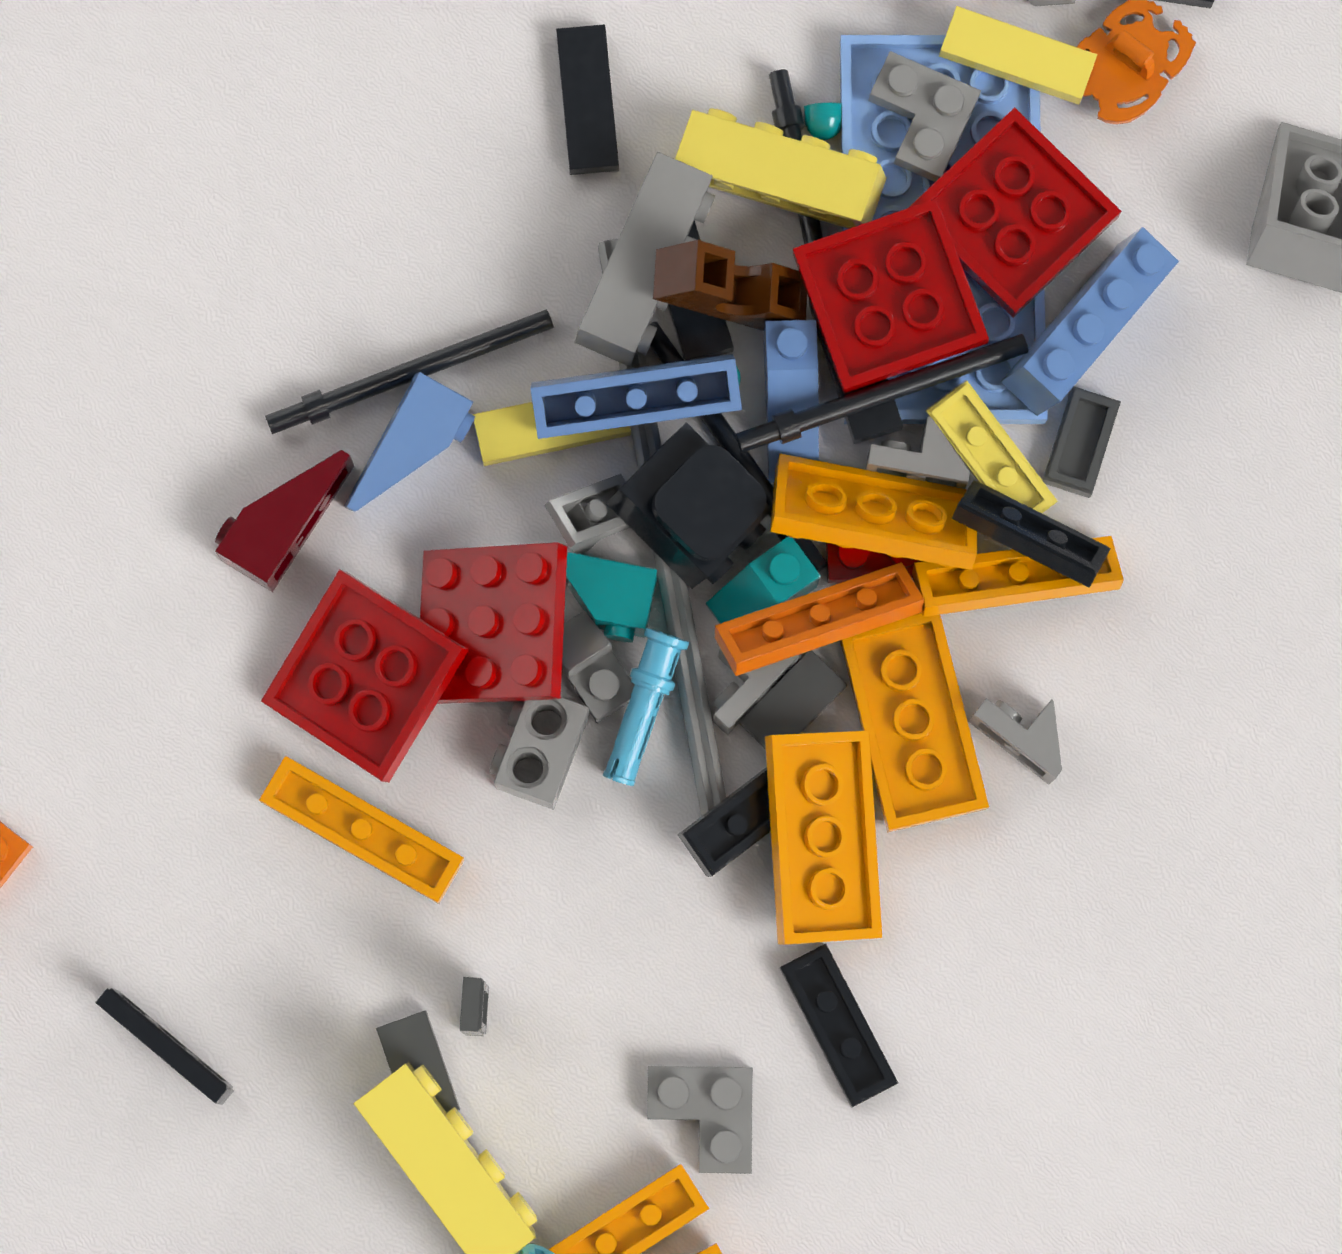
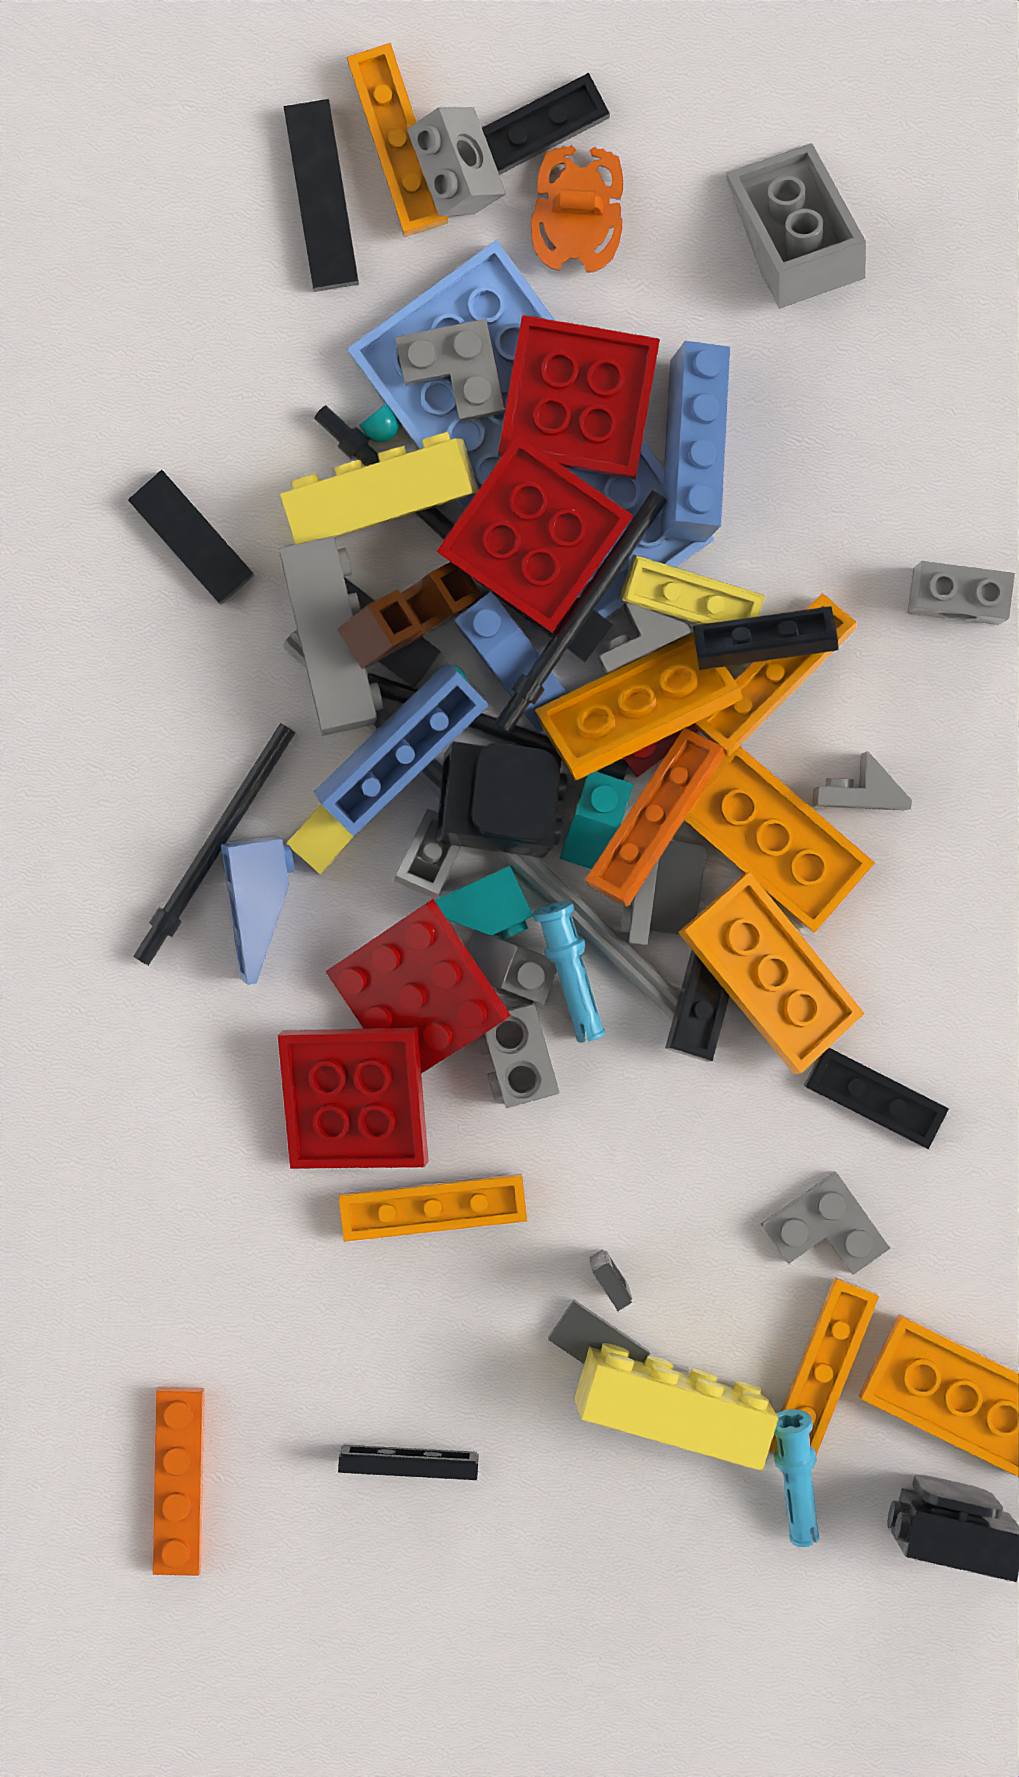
camera: 35 degrees left, 10 degrees up
(276, 526) = (204, 1038): dark red slope -> none
(1018, 55) = (493, 268): light yellow tile -> none
(1081, 442) = (750, 536): dark grey tile -> none
(1237, 622) = (961, 593): none -> light grey brick

